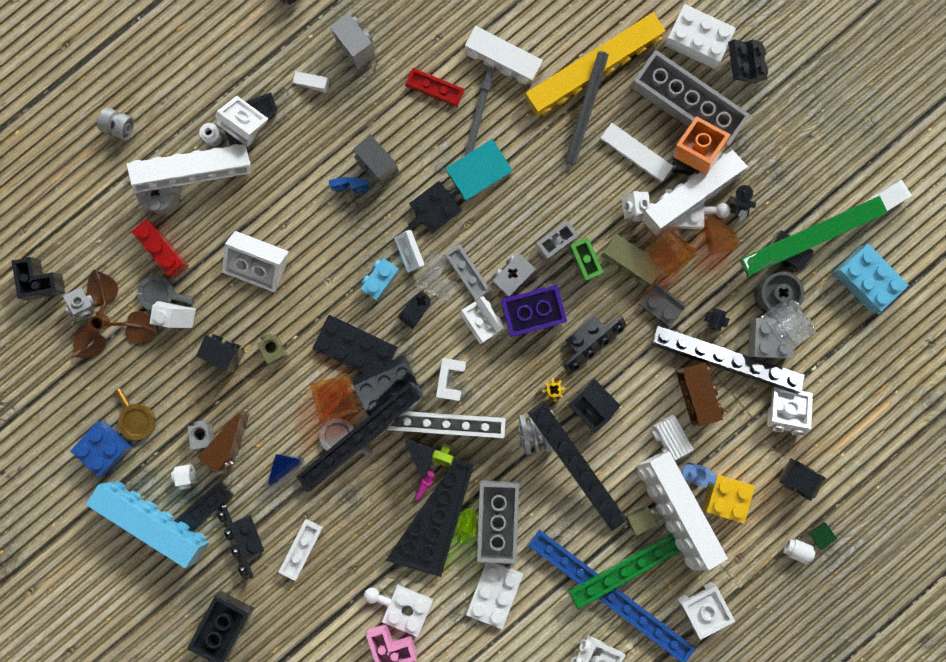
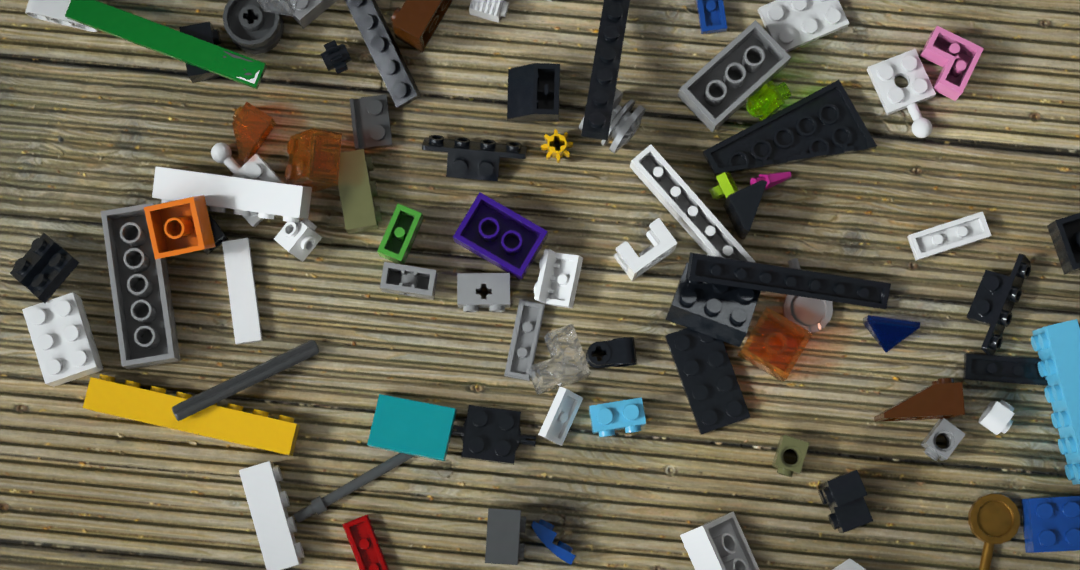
camera: 135 degrees left, 5 degrees down
(743, 202) = (196, 139): black hips -> none

